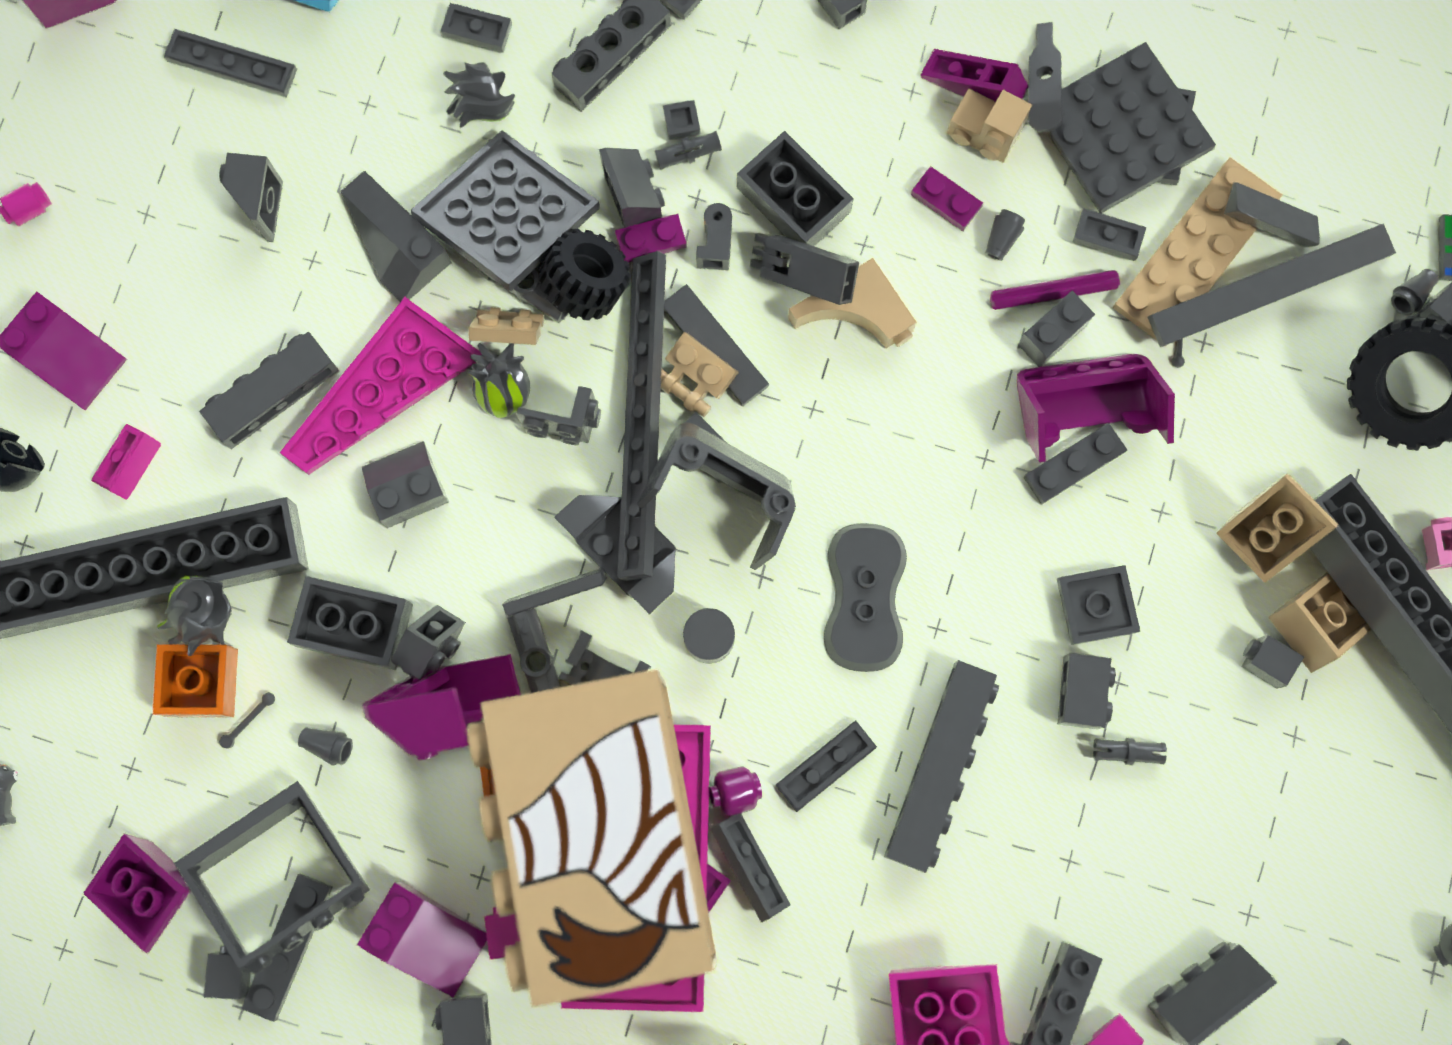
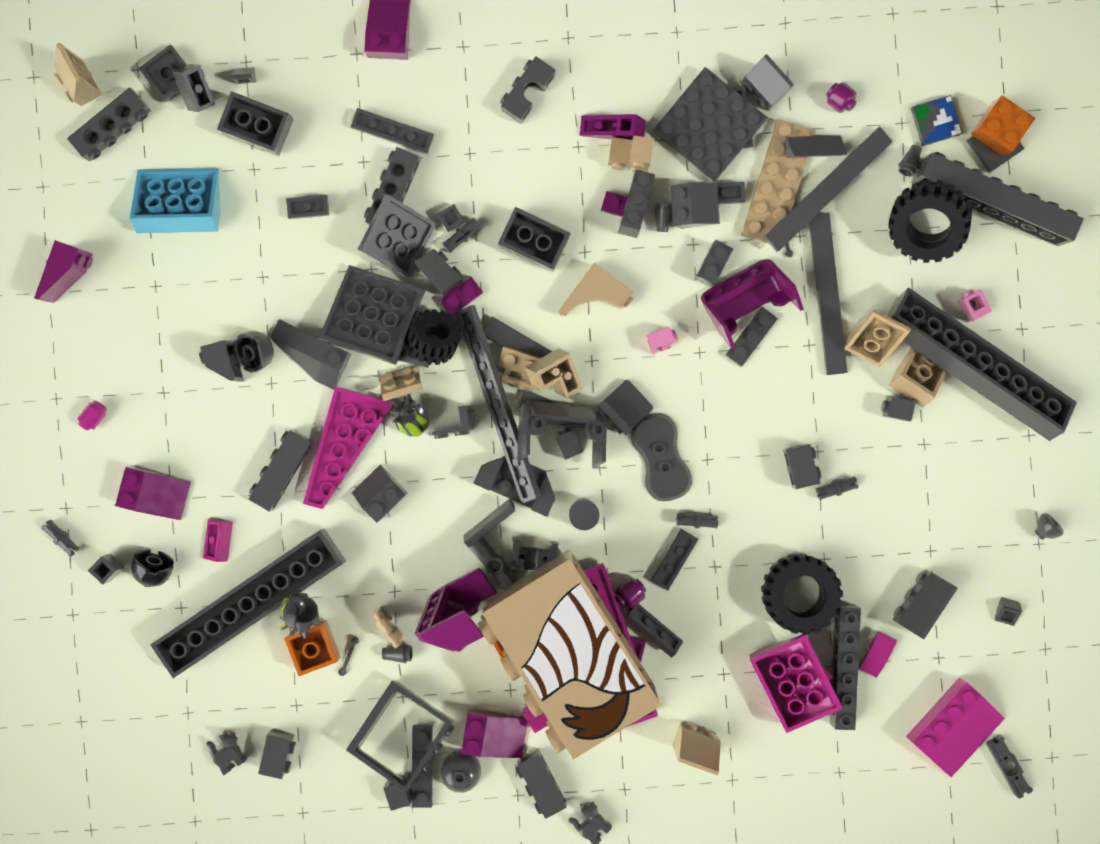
camera: 20 degrees left, 10 degrees up
(64, 833) = (276, 754): none -> dark grey brick
(138, 890) = (333, 771): magenta slope -> none
(230, 62) = (172, 283): dark grey tile -> none
(306, 196) = (253, 350): none -> dark grey cylinder
(329, 706) = (393, 633): none -> tan plate
(345, 980) = (460, 772): none -> dark grey cylinder
(349, 622) = (383, 584): dark grey brick -> none
(428, 642) = (432, 579): dark grey brick -> none
(478, 94) = (327, 250): dark grey hair -> none
(589, 109) = (397, 235): none -> dark grey plate
(718, 244) = (497, 274): dark grey leg -> none
(728, 517) = (568, 443): none -> dark grey brick
(755, 395) = (557, 371): none -> tan brick
(809, 270) = (561, 285): dark grey hinge -> none
(837, 496) = (625, 407): none -> dark grey bracket
(885, 716) = (697, 520): none -> dark grey pin
(933, 413) = (661, 339): none -> bright pink brick
(941, 767) = (737, 537): dark grey brick -> none
(968, 195) = (636, 203): none -> dark grey arch
(1045, 93) = (656, 122): dark grey piece -> none
(1054, 289) = (704, 238): magenta axle -> none
(1058, 231) = (695, 205): none -> dark grey slope
(1060, 909) = (820, 613): none -> black tyre
(1098, 605) = (792, 413): dark grey plate -> none
(1217, 446) = (828, 294): none -> dark grey tile
(1233, 96) = (767, 83): none -> slope
(1338, 160) = (841, 97): none -> magenta head

